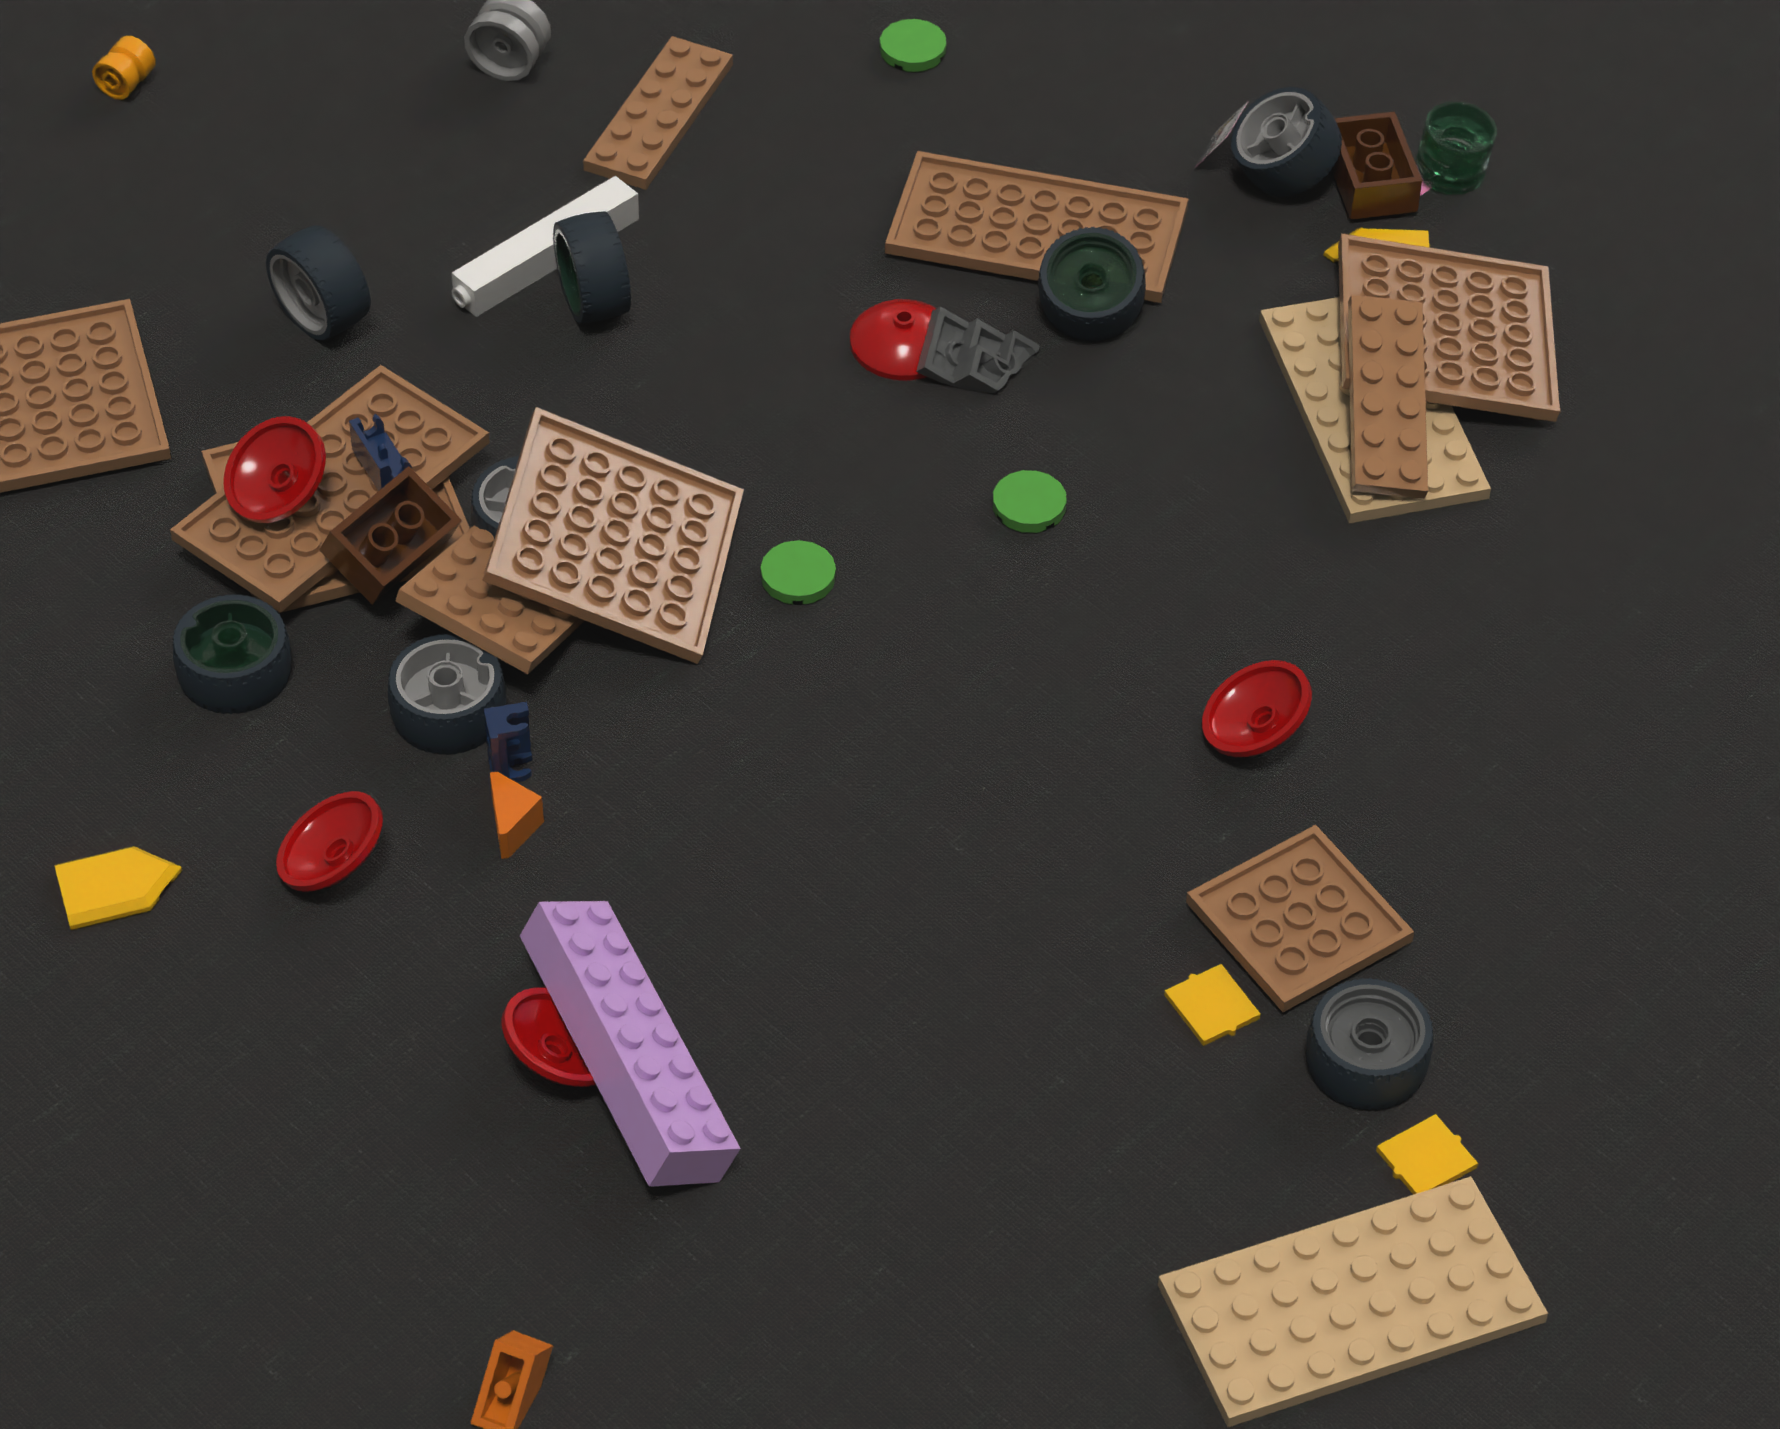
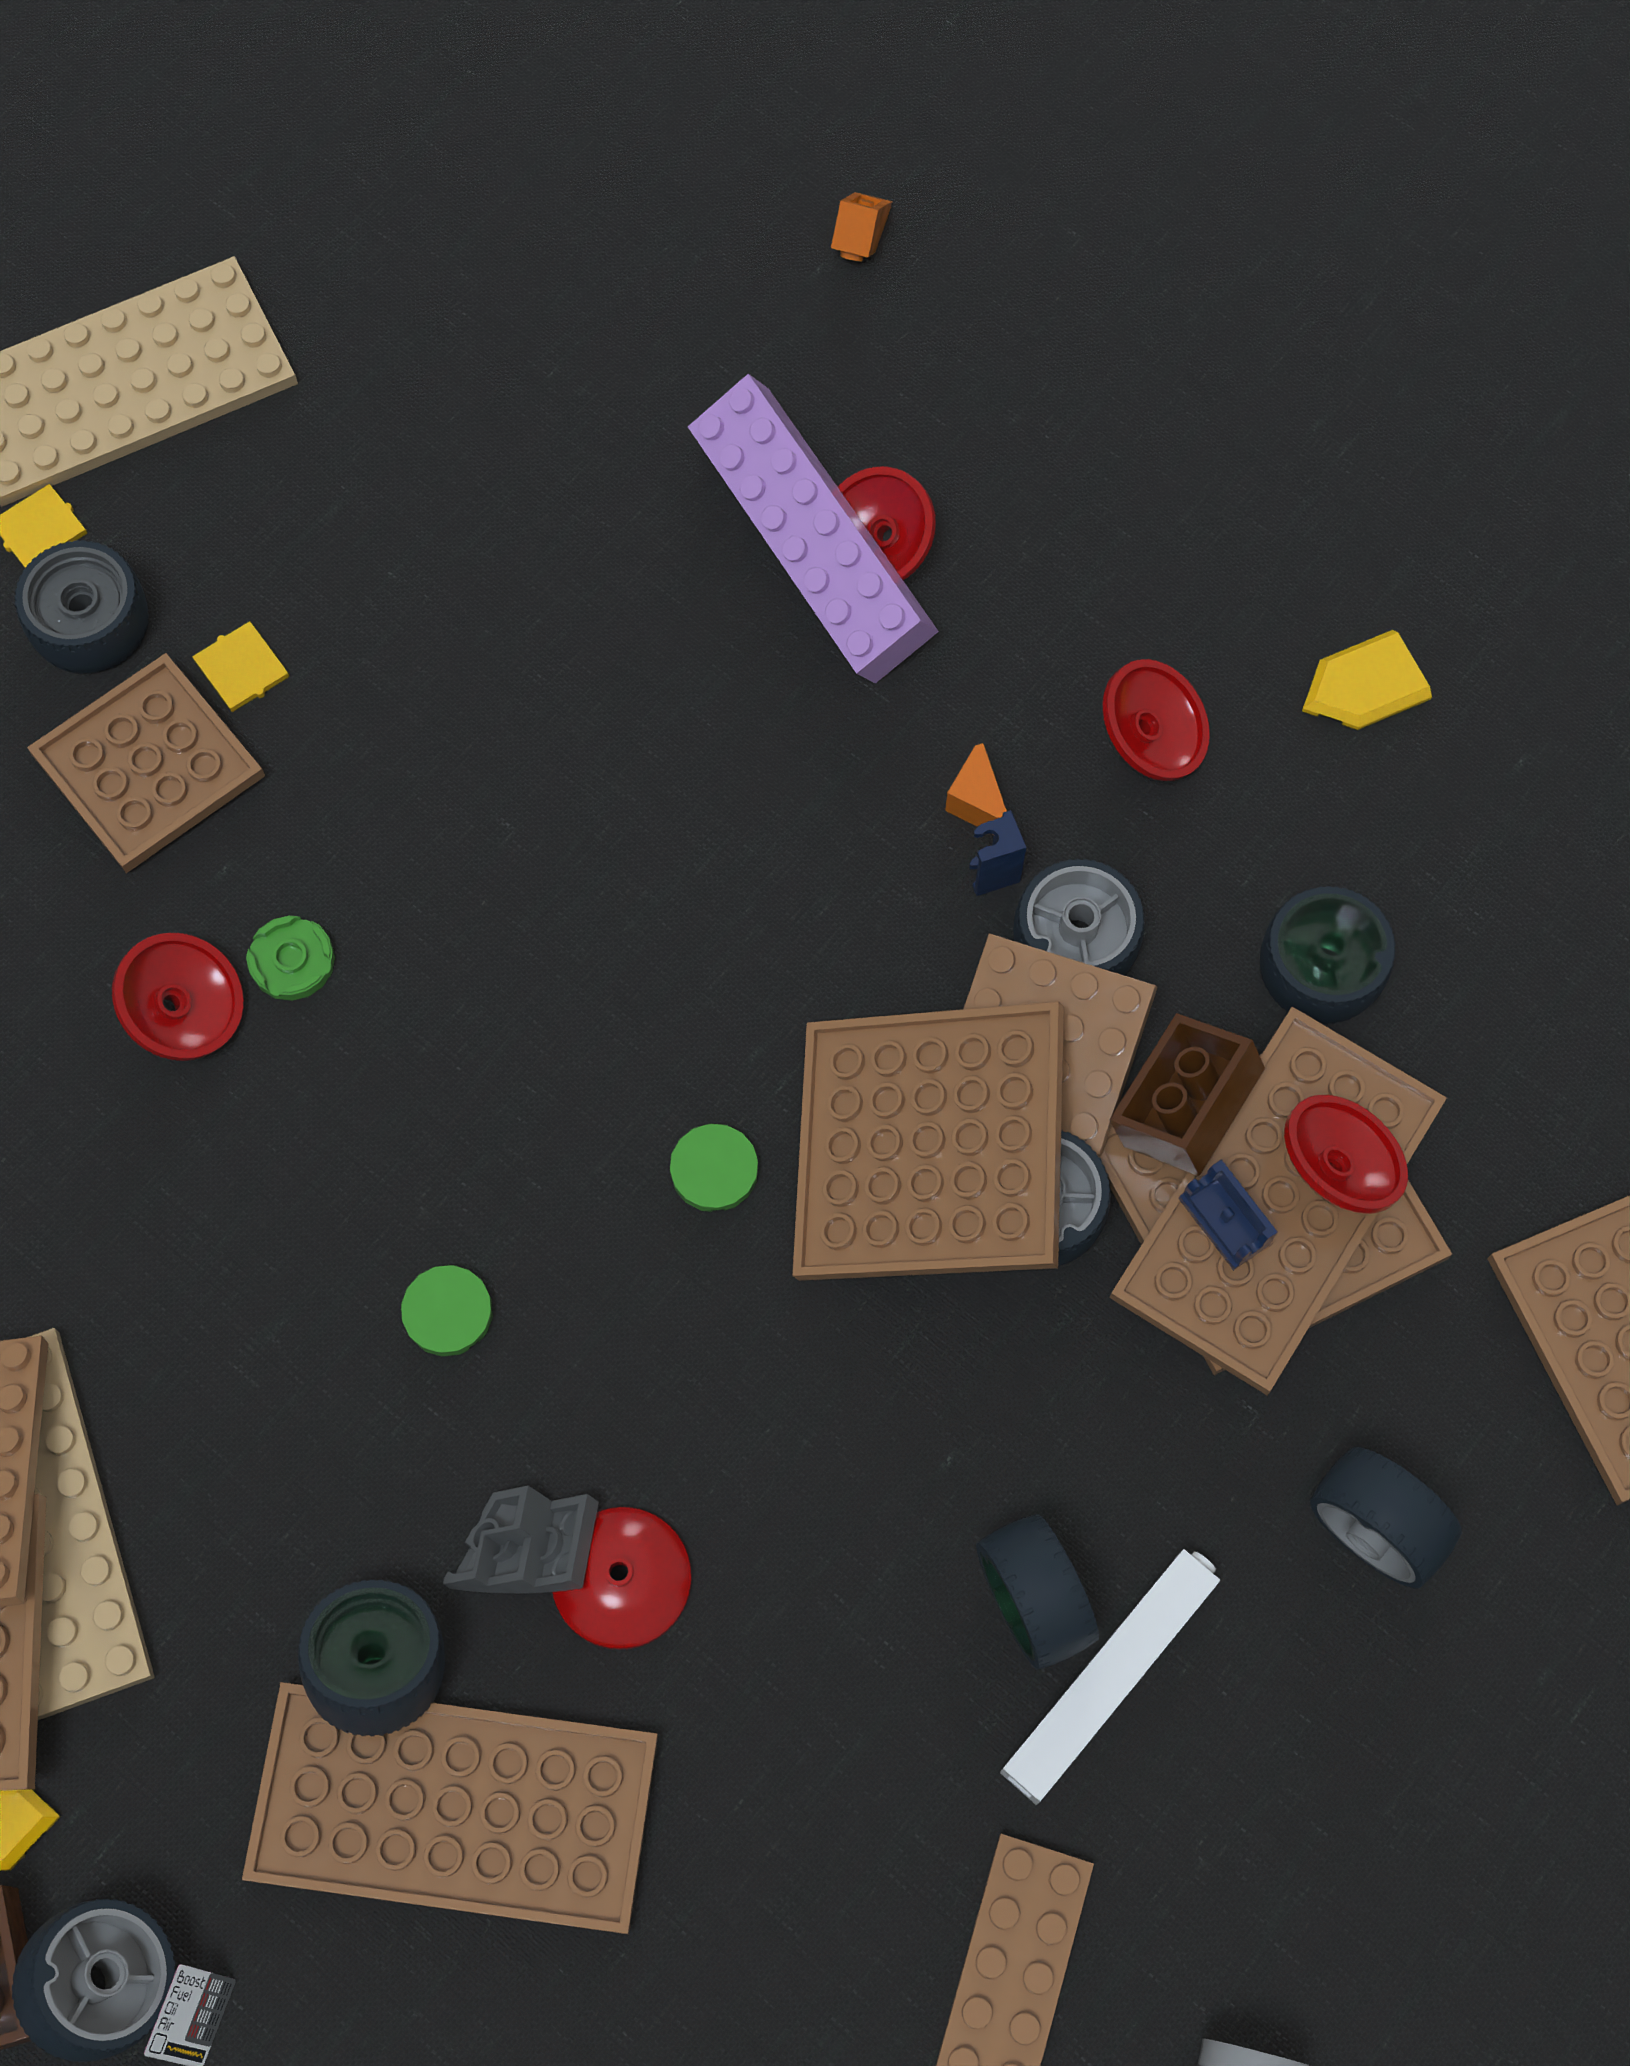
camera: 175 degrees right, 20 degrees up
(1160, 756) = (290, 958): none -> bright green tile

